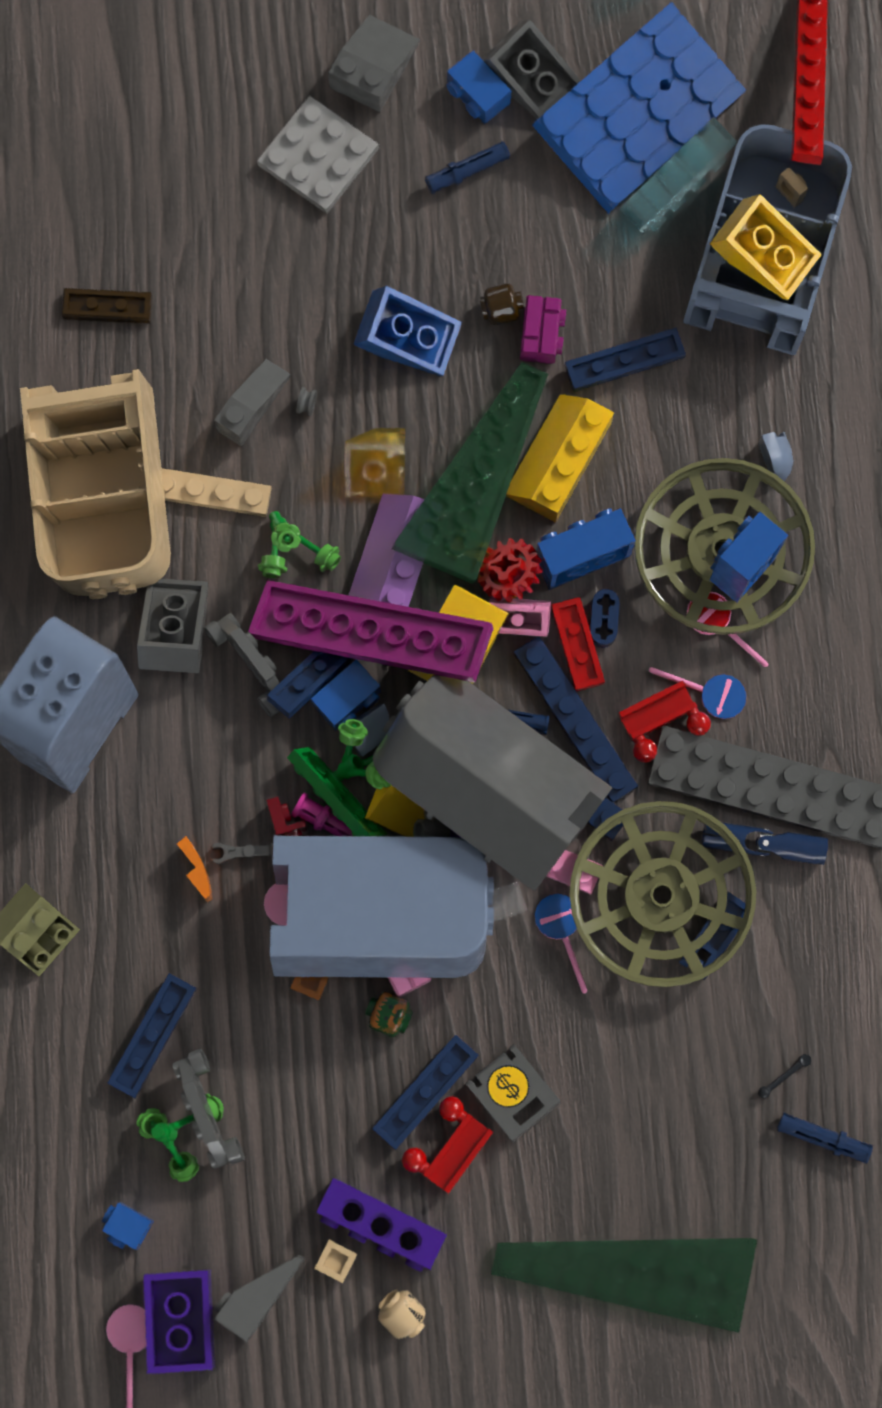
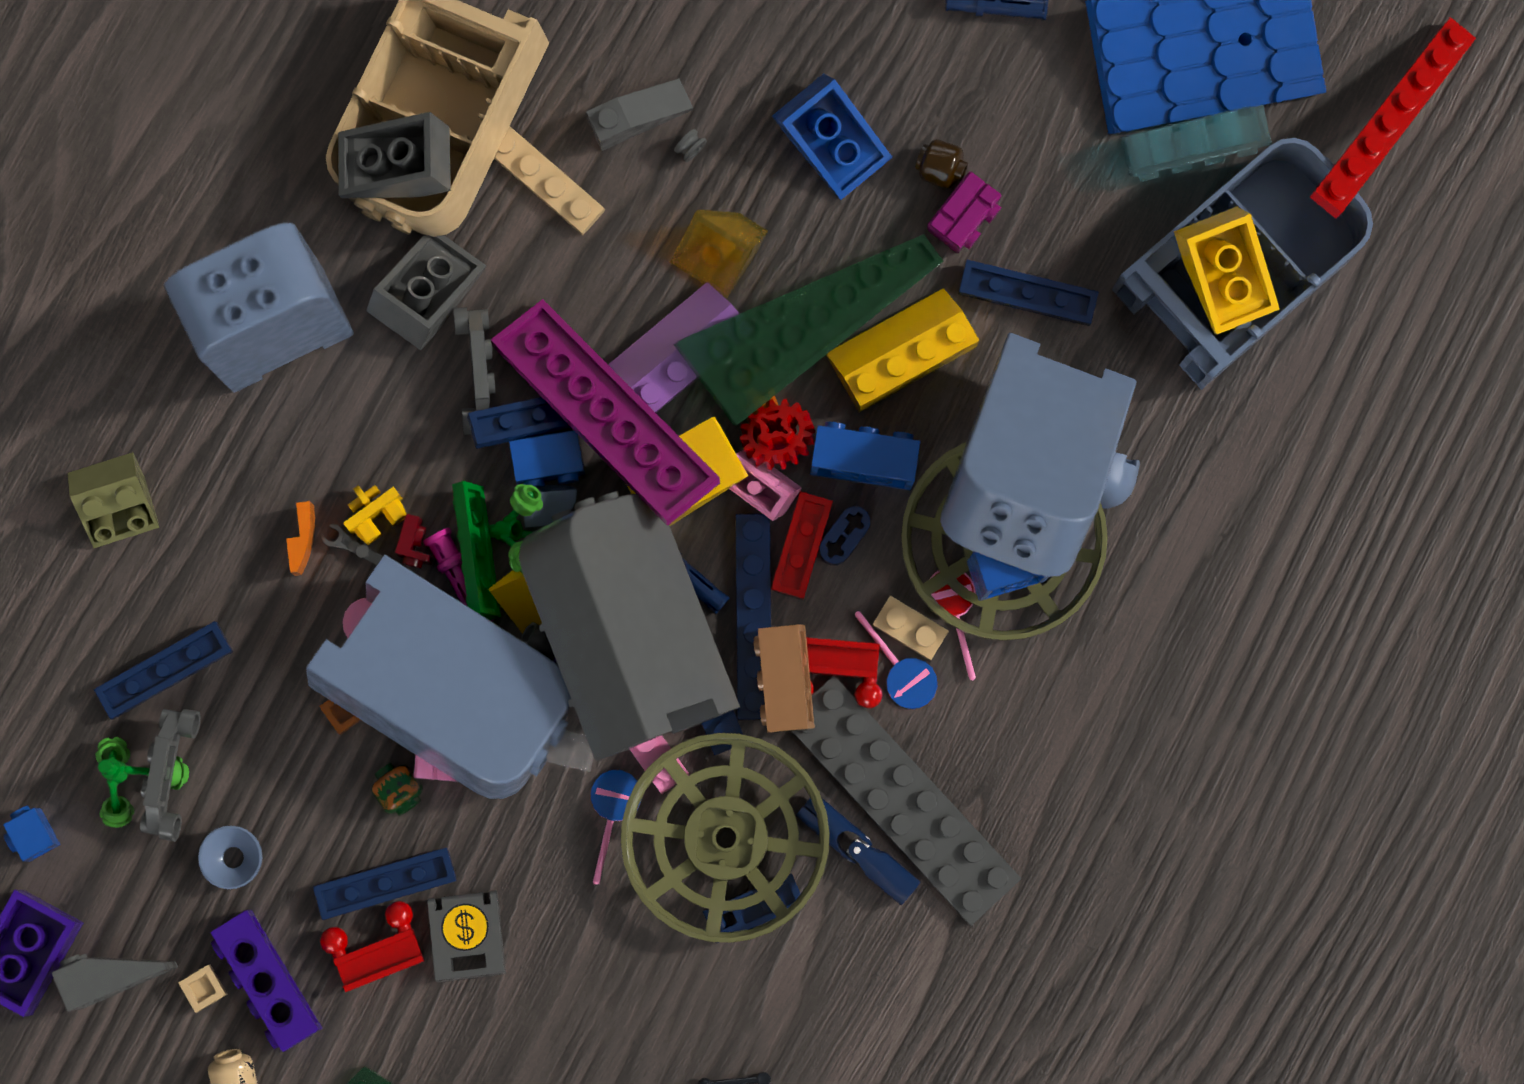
camera: 30 degrees right, 5 degrees up
(95, 534) = (395, 158): none -> dark grey slope
(245, 804) = (362, 521): none -> yellow hips
(279, 1137) = (212, 857): none -> sand blue piece
(287, 537) = (580, 271): bright green plant -> none
(630, 747) = (784, 678): none -> medium nougat brick
(696, 656) = (910, 628): none -> tan plate
(718, 466) = (1036, 460): none -> sand blue piece
(792, 187) = (1306, 219): tan plate -> none

